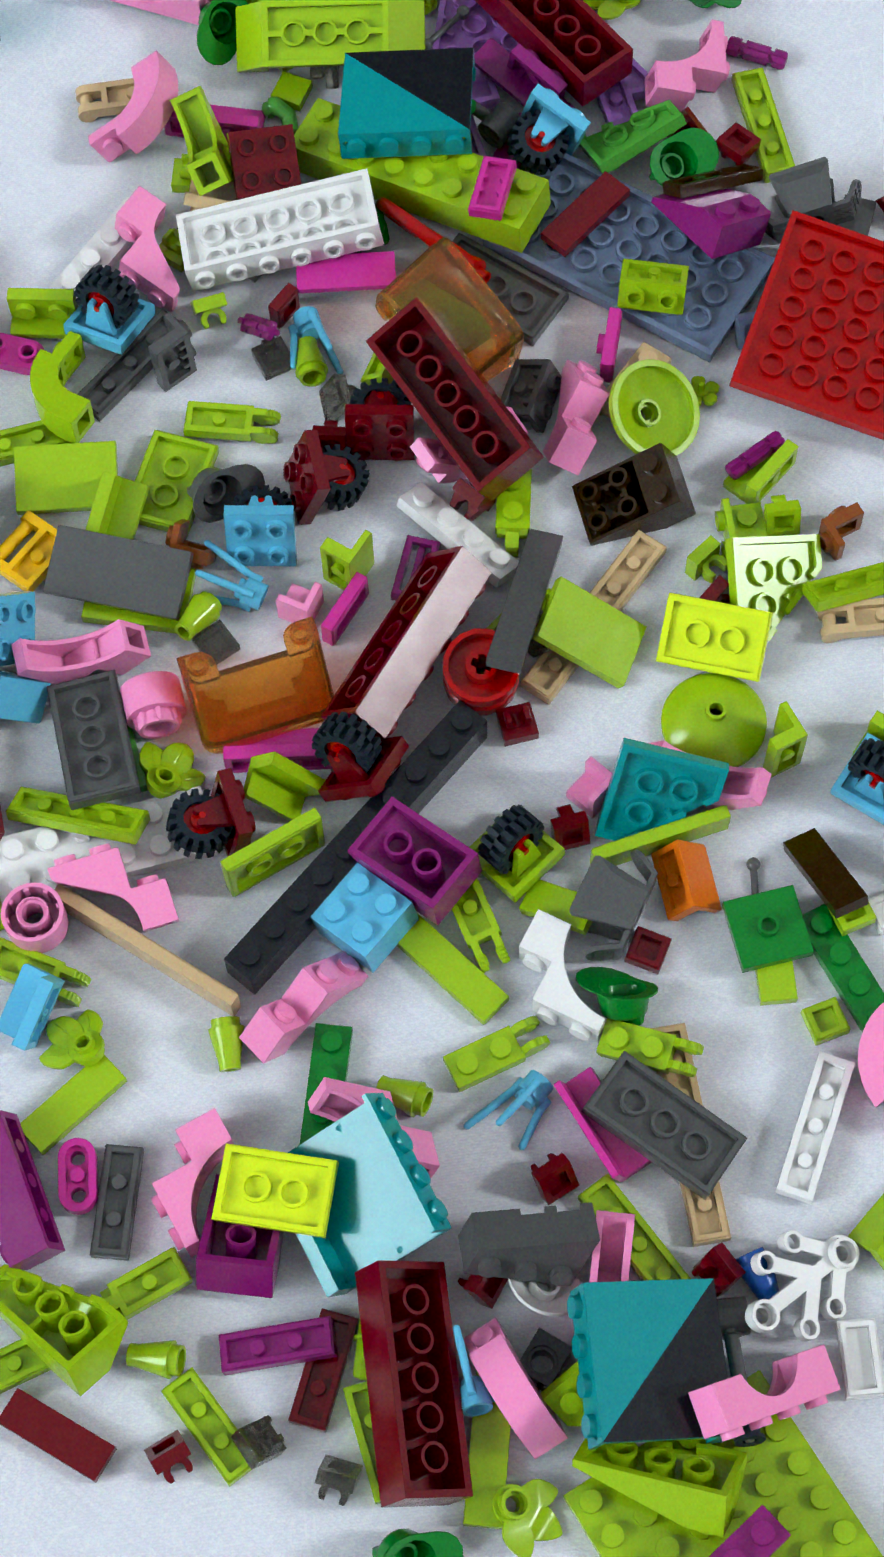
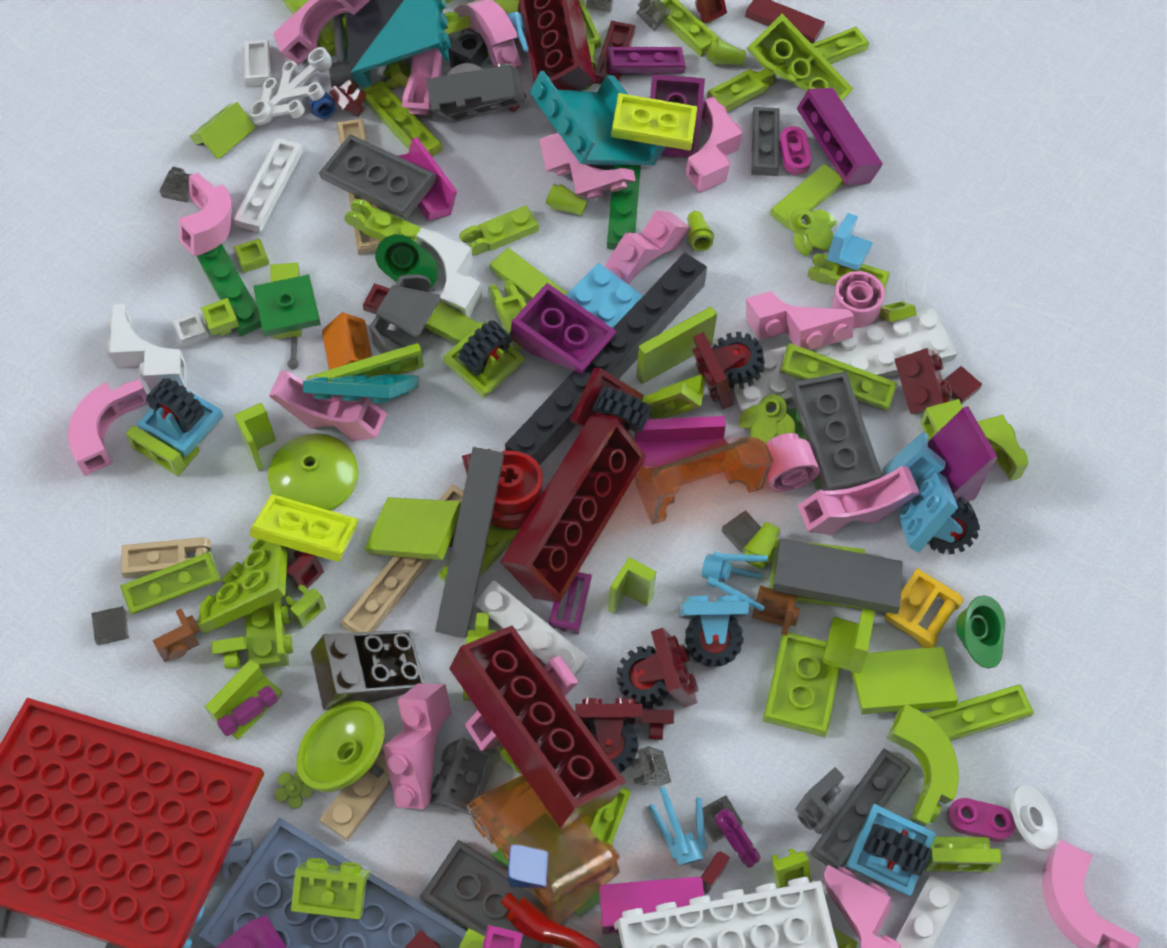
camera: 175 degrees right, 5 degrees down
(149, 951) = (751, 279): tan tile -> none
(218, 487) = (758, 663): dark grey piece -> none
(230, 422) = (755, 741): lime hinge -> none
(300, 603) = (672, 560): bright pink panel -> none
(310, 365) = (685, 807): lime cone -> none
(345, 609) = (635, 548): dark pink tile -> none
(462, 256) = (527, 867): none -> slope
(528, 1092) = (473, 202): medium azure plant -> none
(554, 1178) = (459, 150): dark red tile -> none
(570, 828) = (439, 377): dark red tile -> none
(590, 788) = (417, 409): bright pink panel -> none
(608, 344) = (381, 830): dark pink plate -> none
(825, 873) = (235, 341): dark brown tile -> none

